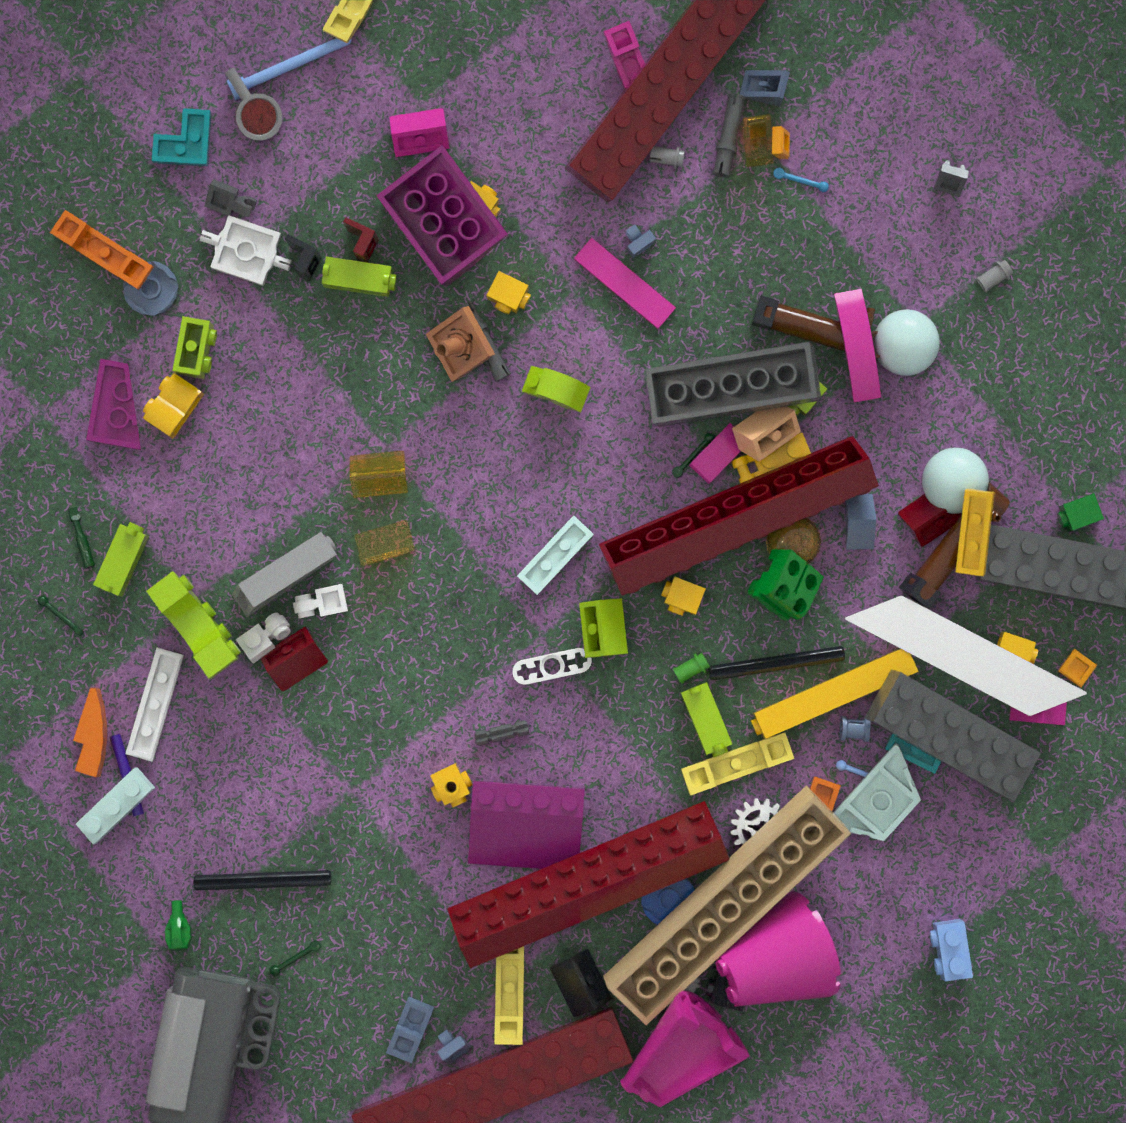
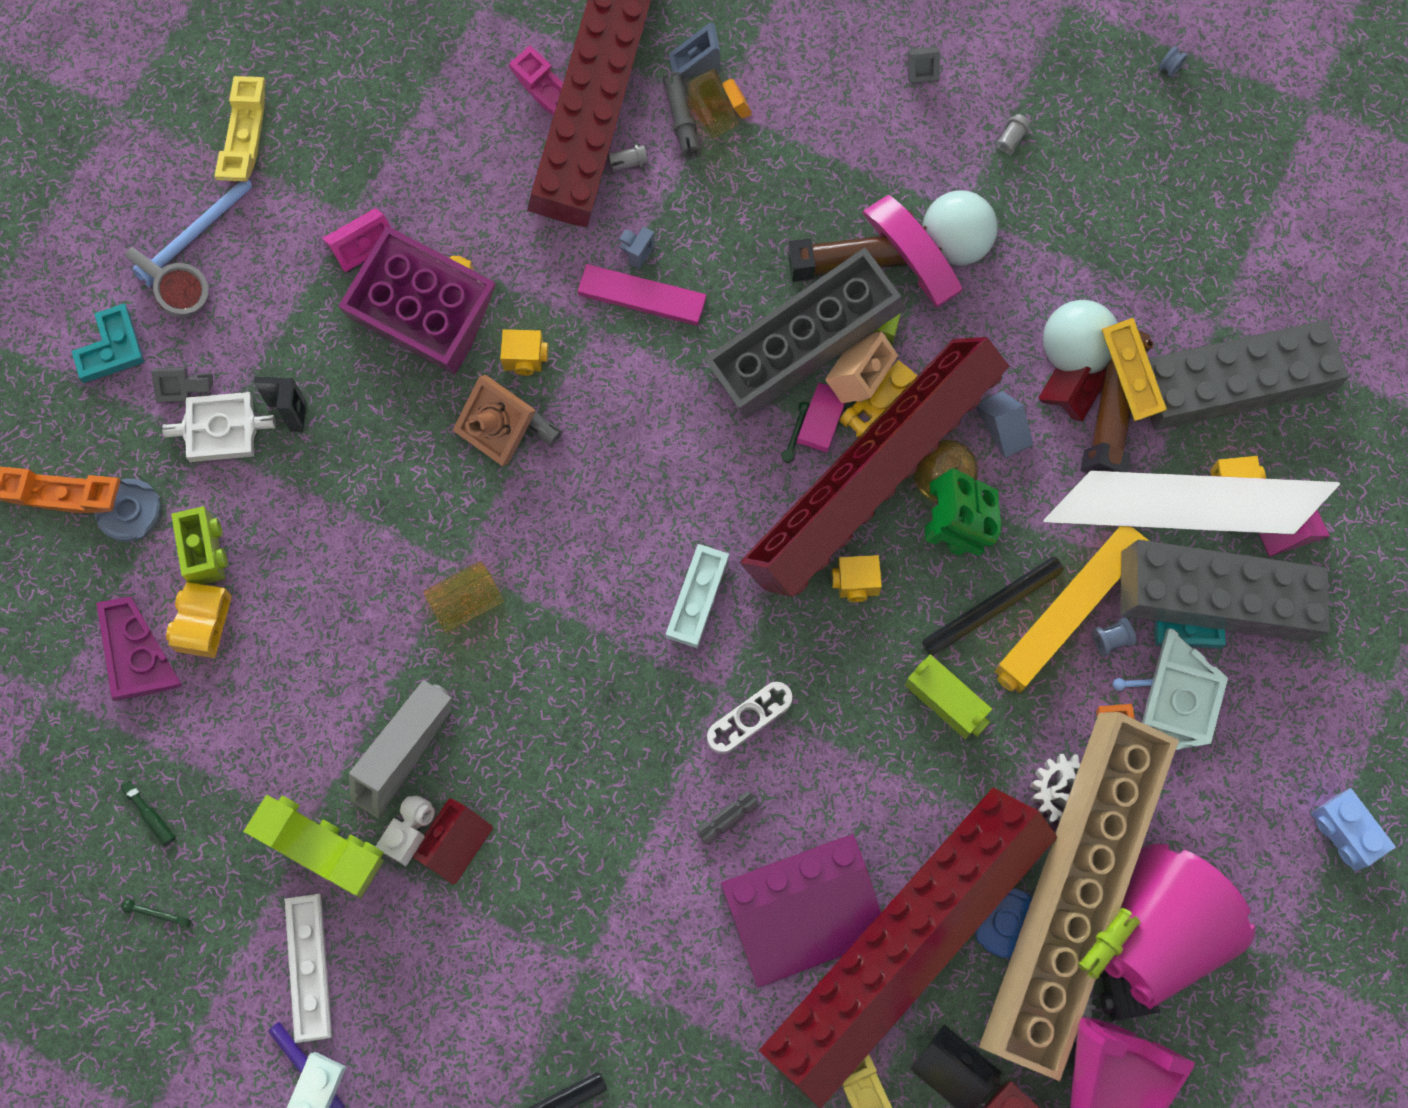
camera: 25 degrees left, 15 degrees down
(92, 734) = (245, 1036): orange slope -> none
(121, 559) = (203, 814): lime brick -> none
(329, 600) = (464, 755): white plate -> none
(358, 276) = (353, 401): lime brick -> none
(366, 242) = (341, 353): dark red panel -> none
(384, 543) = (502, 667): clear yellow panel -> none
(451, 774) = (691, 889): yellow brick -> none
(556, 388) = (618, 419): lime brick -> none
(605, 628) = (787, 647): lime brick -> none
(691, 667) = (904, 650): bright green pin -> none
(725, 951) = (1109, 943): none -> lime pin
(737, 763) = (1007, 731): light yellow slope -> none
(822, 186) = (749, 130): dark azure hinge -> none
(1077, 668) = (1308, 468): light orange tile -> none
(1080, 513) = (1224, 315): green brick -> none

